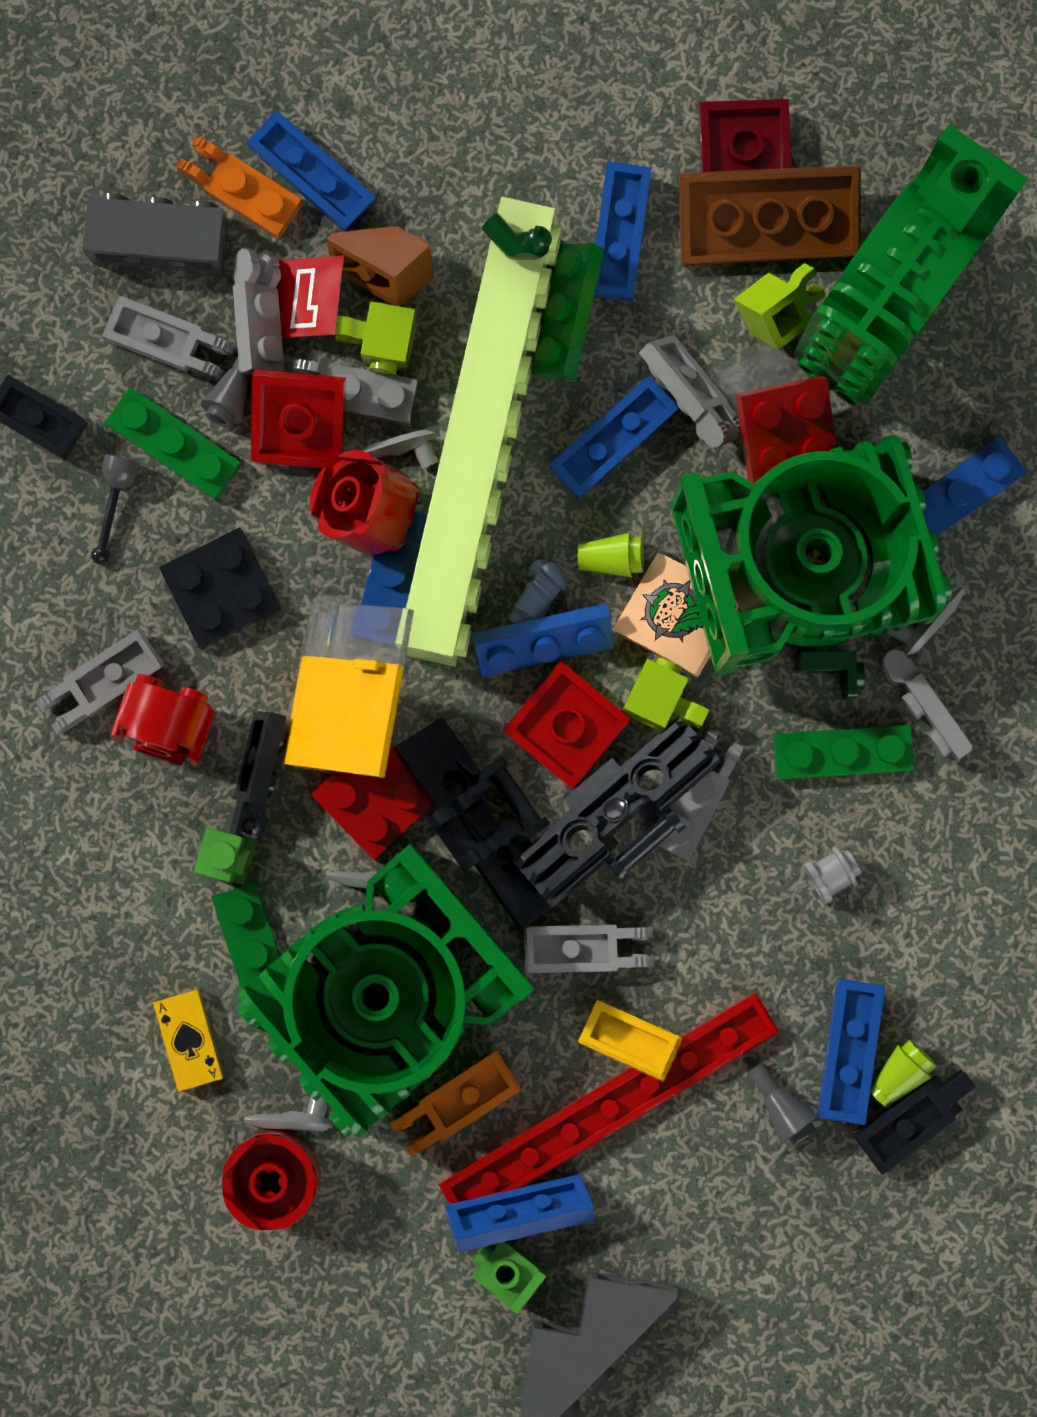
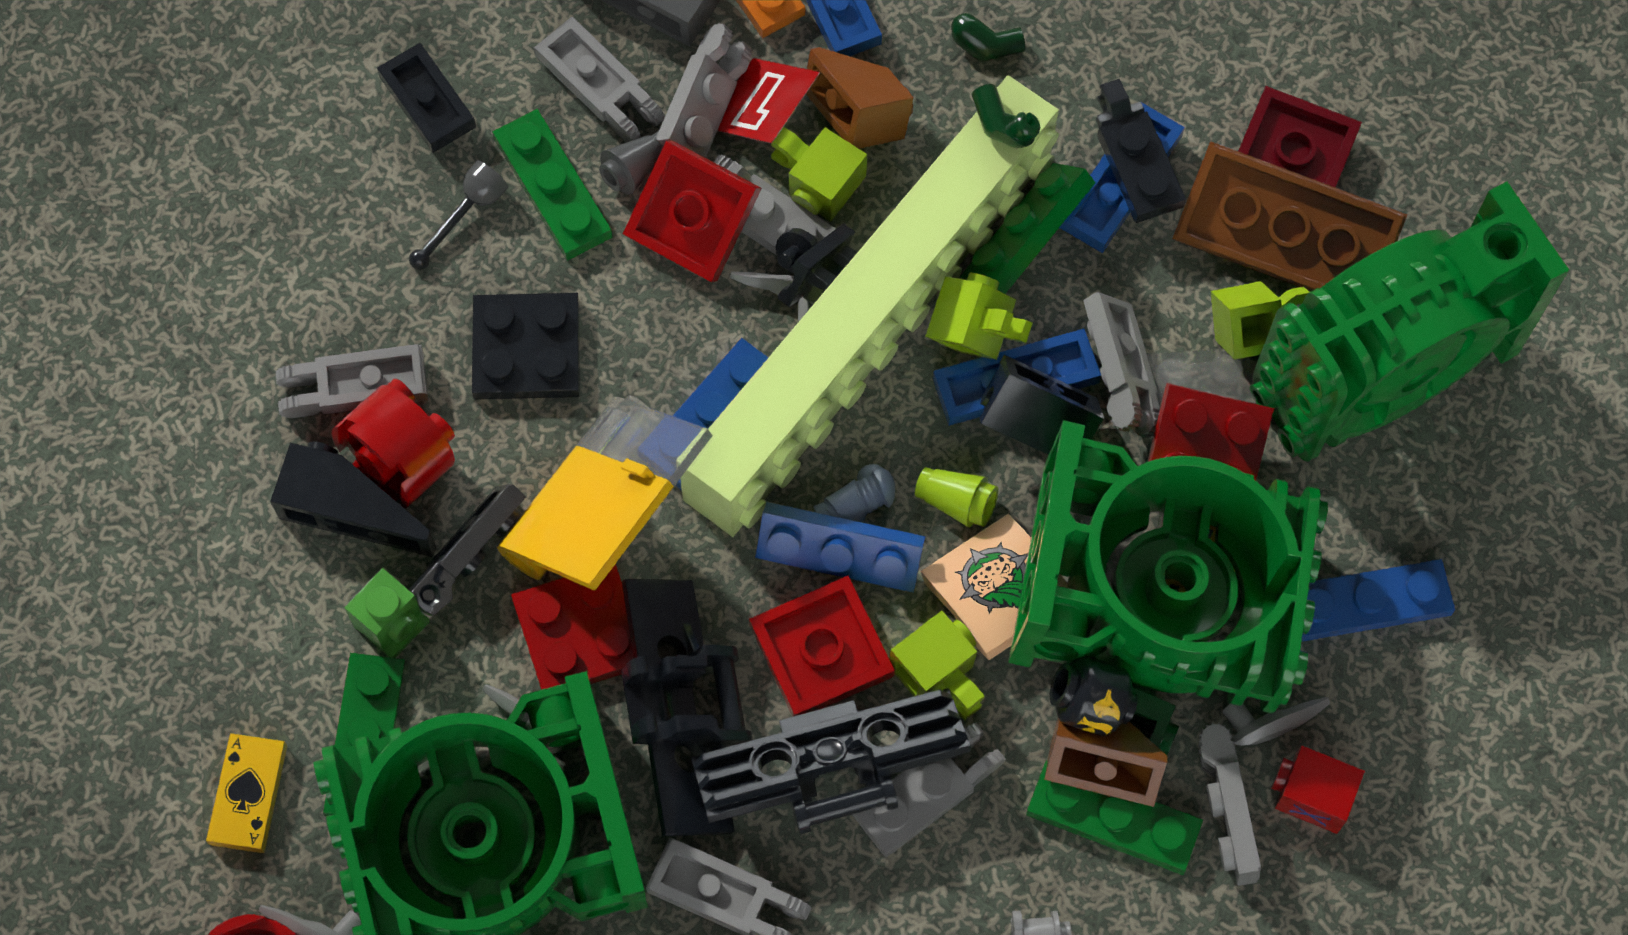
camera: 25 degrees right, 15 degrees down
(131, 781) = (335, 496): none -> black slope
(364, 503) = (717, 319): red brick -> none
(404, 418) = (812, 262): none -> black hips
(457, 164) = (982, 41): none -> dark green arm
(564, 408) = (975, 317): none -> lime brick
(626, 210) = (1136, 155): none -> black hinge
(646, 459) = (1033, 405): none -> black hinge
(795, 677) = (1093, 695): none -> black head
(817, 712) = (1112, 765): none -> dark orange slope
(984, 662) = (1317, 788): none -> red brick

